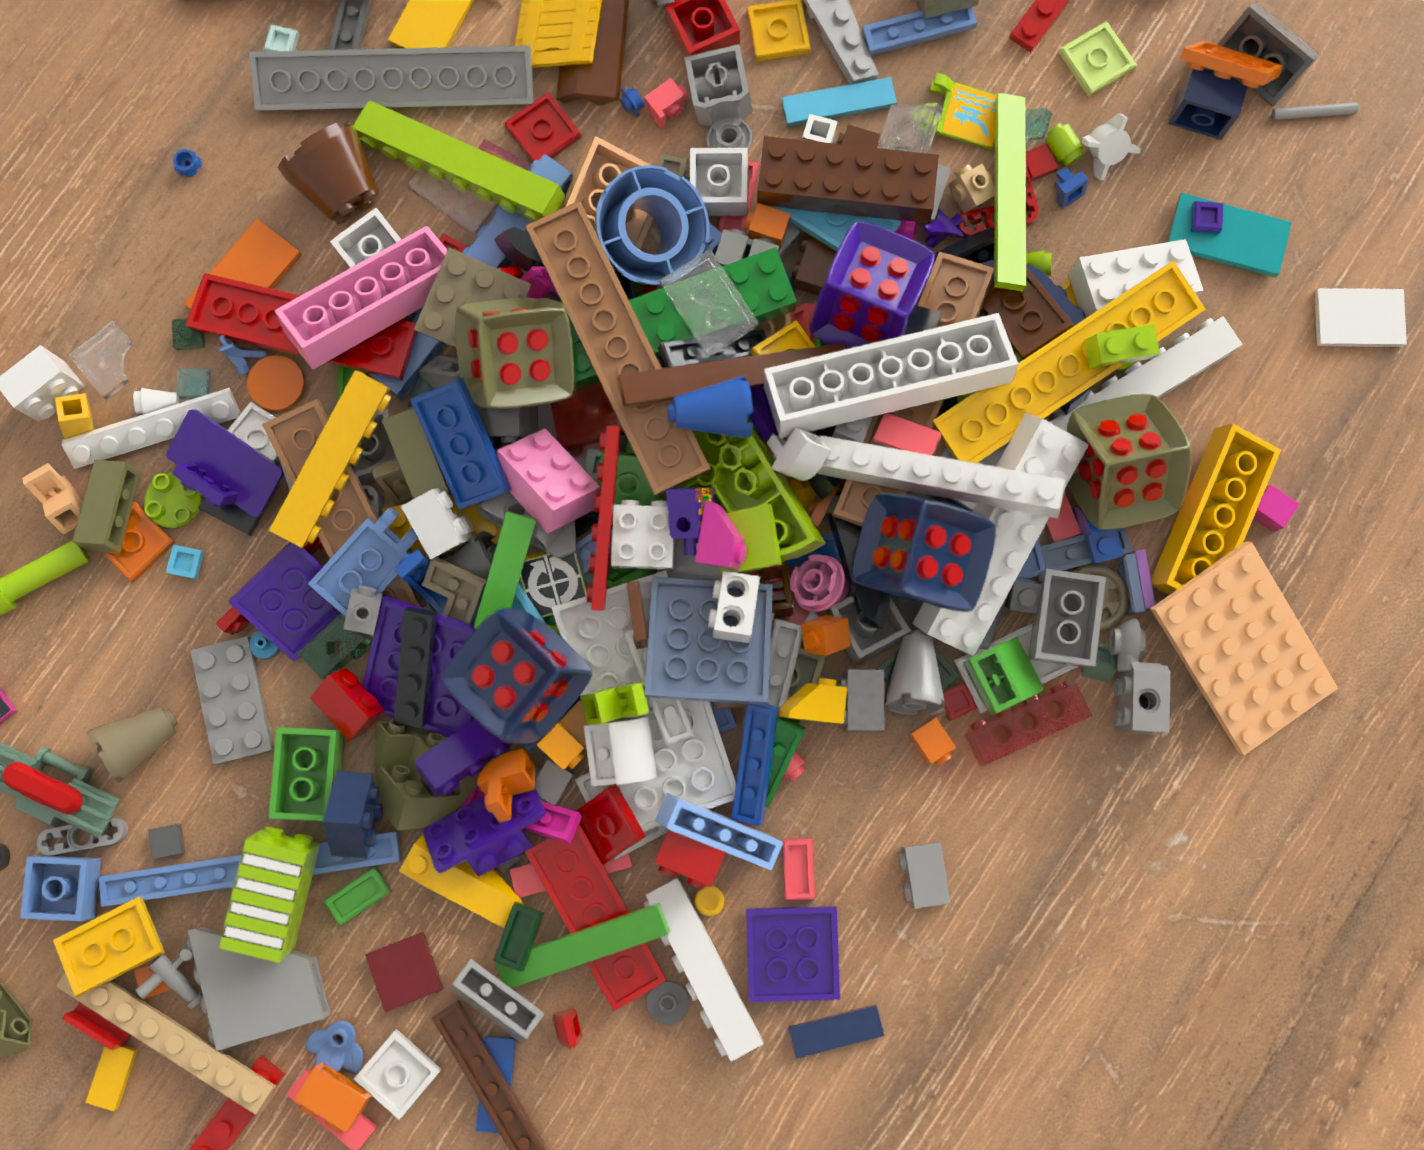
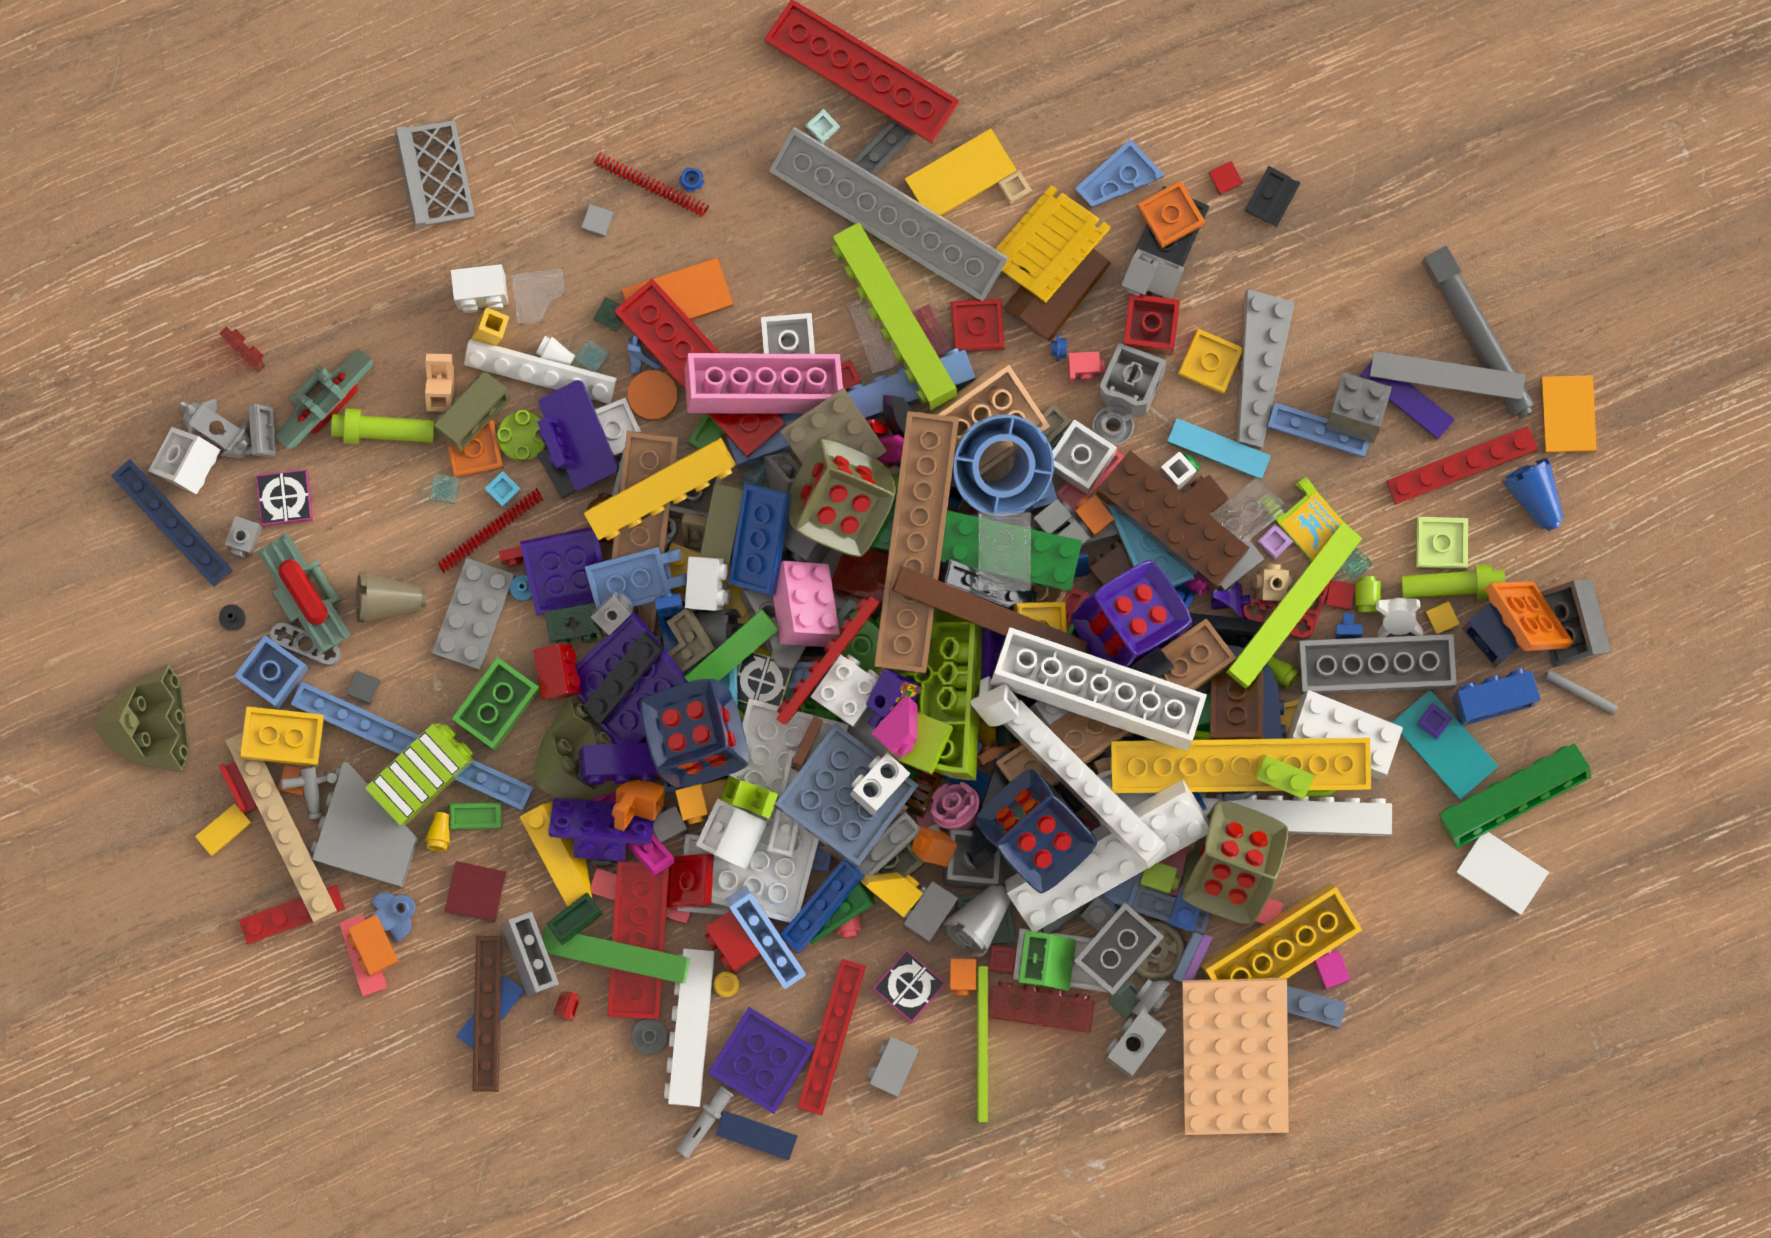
camera: 30 degrees right, 0 degrees up
(121, 255) = (597, 220): none -> light grey tile
(128, 597) = (445, 489): none -> clear light blue plate
(146, 189) = (651, 185): none -> red piece
(189, 633) = (489, 530): none -> red piece
(330, 937) = (438, 835): none -> yellow cone
(332, 172) = (796, 266): reddish brown cone -> none
(352, 814) = (512, 755): dark blue brick -> none
(397, 1074) = (426, 960): white plate -> none
(715, 409) = (955, 633): blue cone -> none
(777, 1049) = (705, 1121): none -> light grey pin
(798, 869) = (805, 1004): coral tile -> none
(846, 886) = (831, 1037): none -> red plate
(886, 785) = (909, 986): none -> tile
(906, 435) = (1085, 741): coral tile -> none
(948, 151) = (1274, 542): none -> lavender tile
(997, 798) = (982, 1044): none -> lime tile
(1060, 528) = (1160, 878): none -> lime brick
(1119, 199) = (1377, 664): none -> light grey brick
(1145, 124) = (1442, 618): none -> yellow tile
(1160, 66) = (1452, 583): none -> lime piece
(1249, 157) = (1495, 697): none -> blue brick
(1286, 551) = (1315, 1007): none -> sand blue plate
(1326, 238) = (1515, 795): none -> green brick

